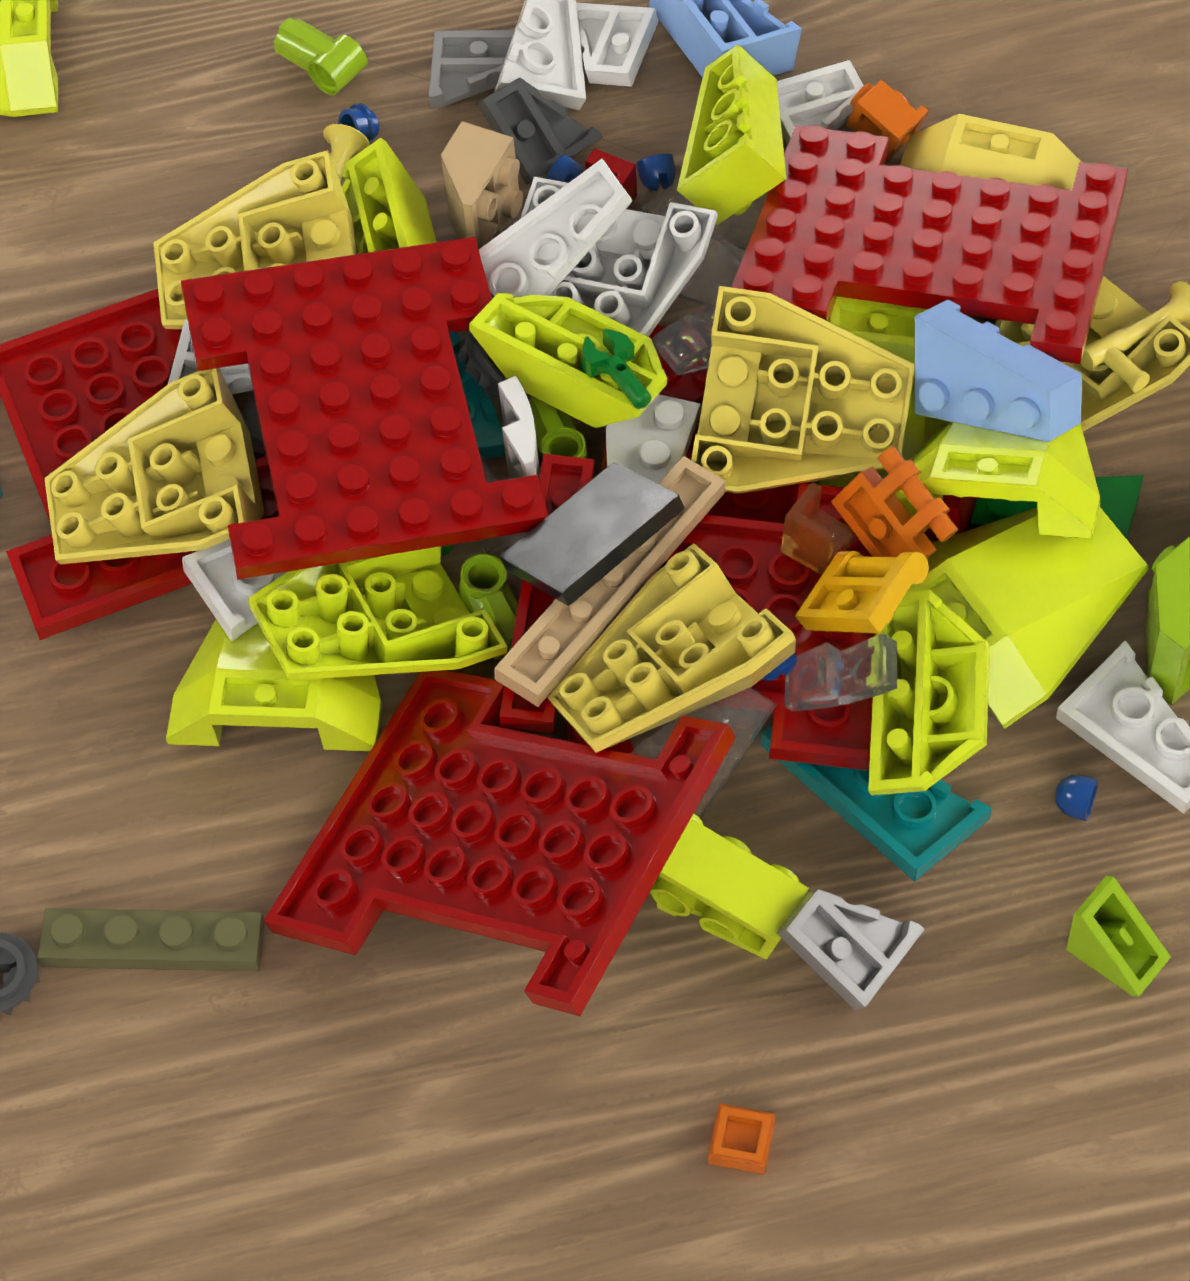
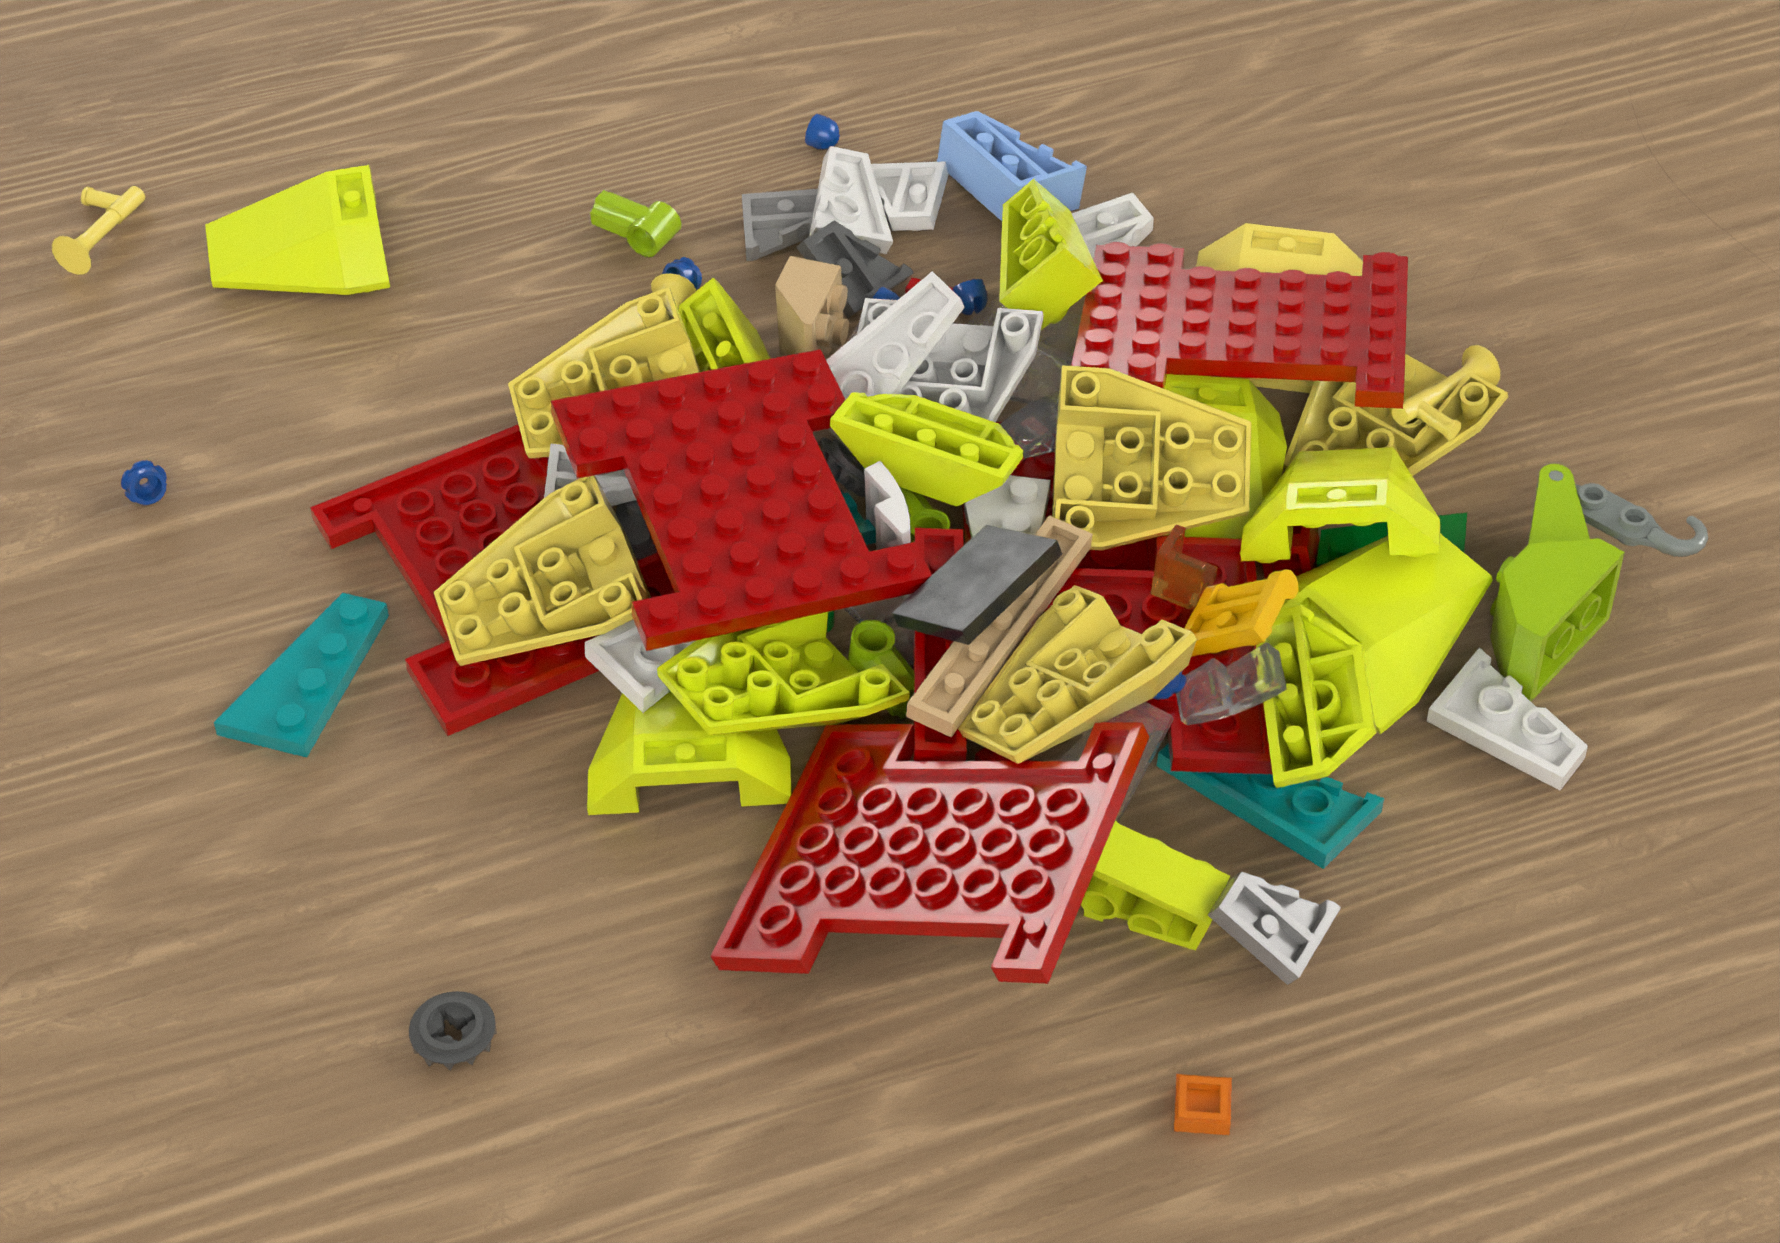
camera: 10 degrees left, 10 degrees down
(151, 939) = (601, 986): olive plate -> none
(616, 366) = (973, 437): green bar -> none
(881, 519) = (1240, 552): orange plate -> none
(885, 114) = (1176, 229): orange brick -> none
(989, 381) = (1319, 429): light blue wedge -> none
(1076, 796) = (1459, 782): blue hinge -> none
(1116, 939) = (1520, 897): lime slope -> none

